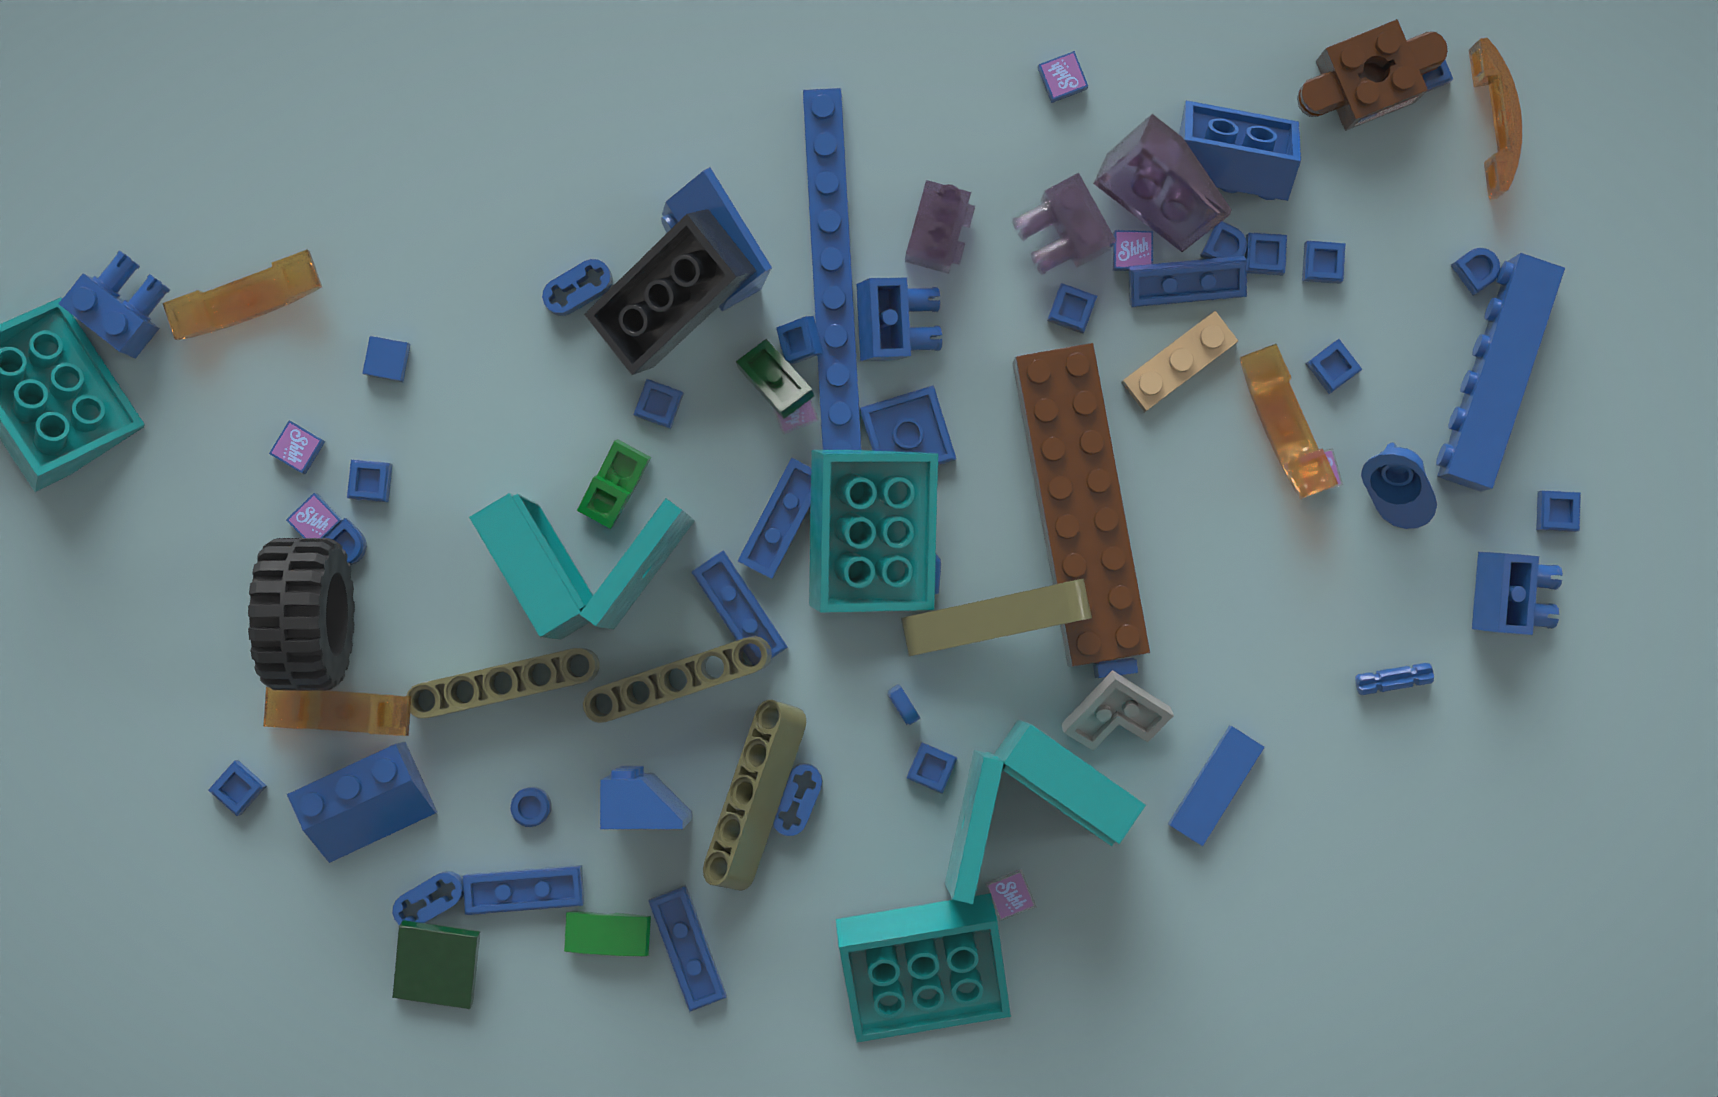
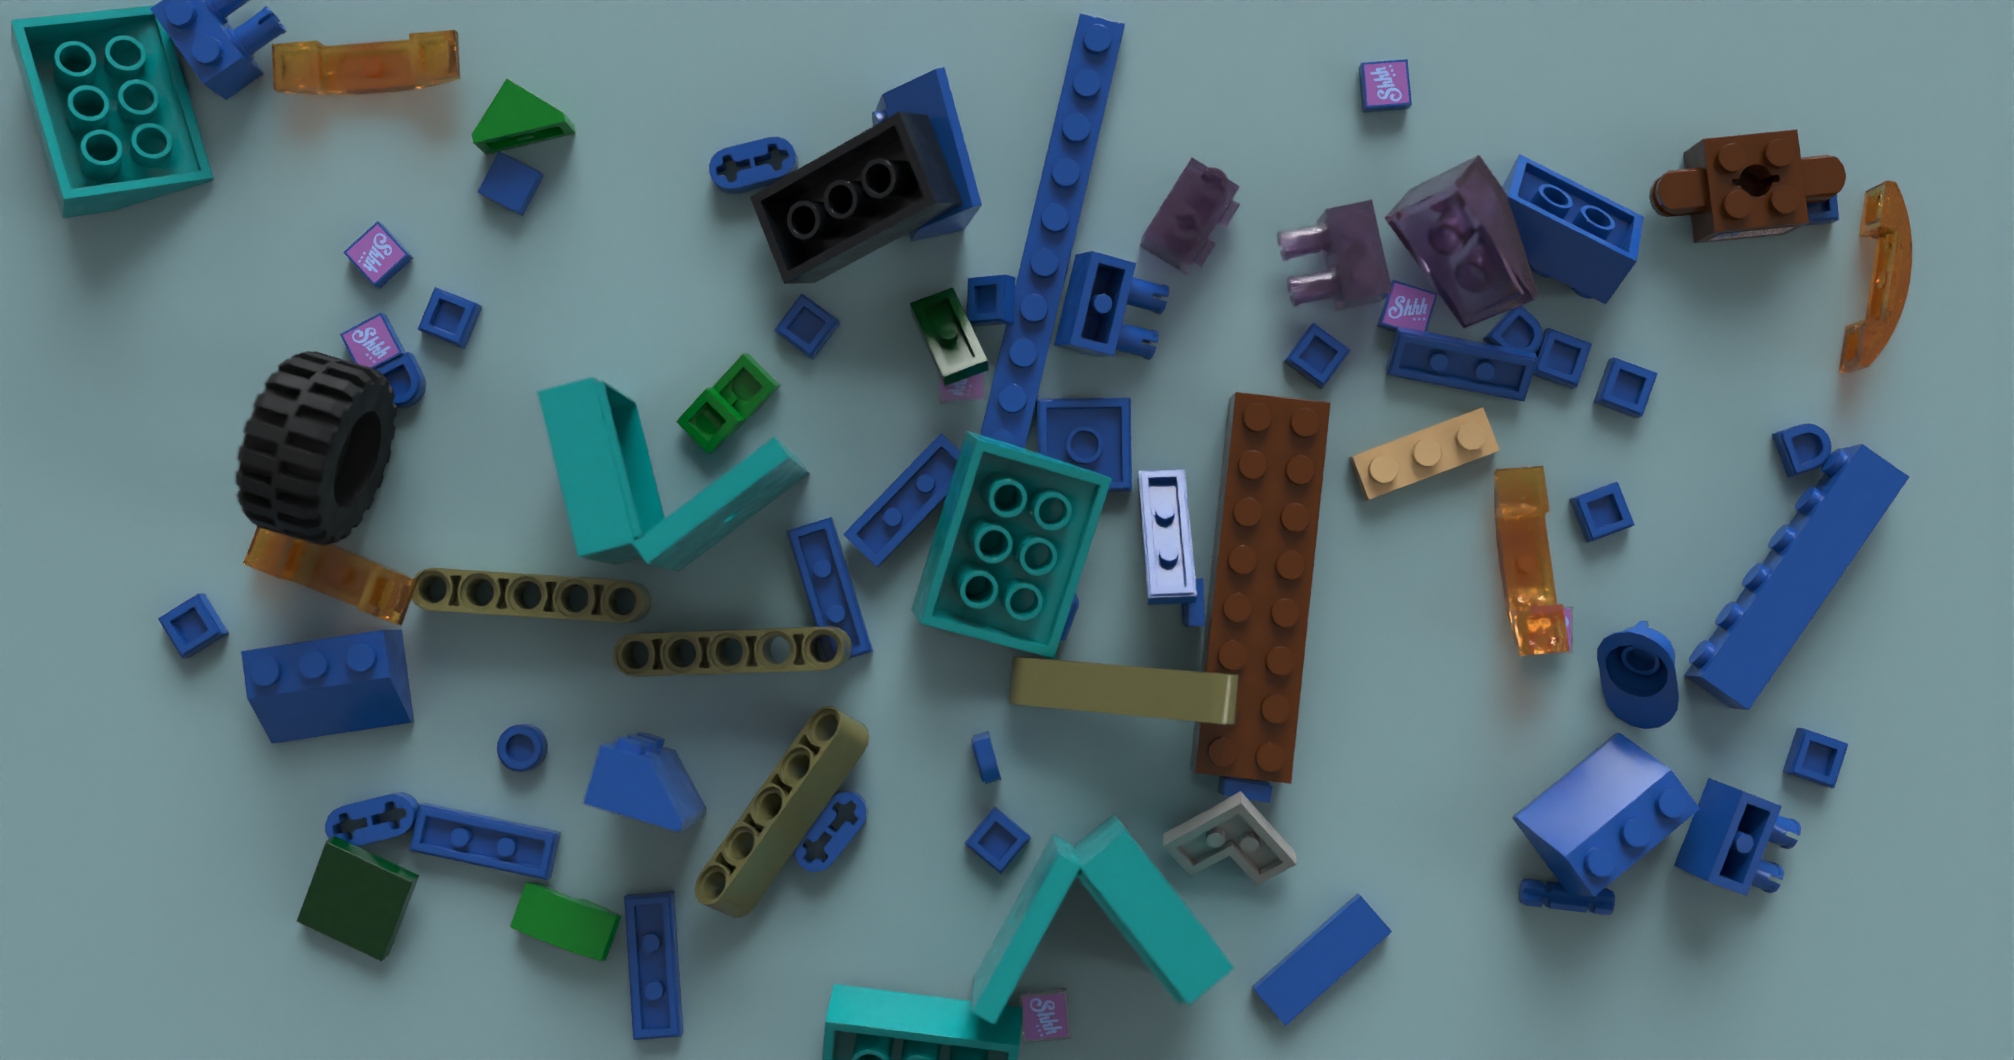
camera: 20 degrees right, 0 degrees up
(378, 306) = (518, 120): none -> green slope
(995, 487) = (1166, 537): none -> tile
(1031, 533) = (1194, 613): none -> blue tile
(1404, 605) = (1605, 815): none -> blue slope

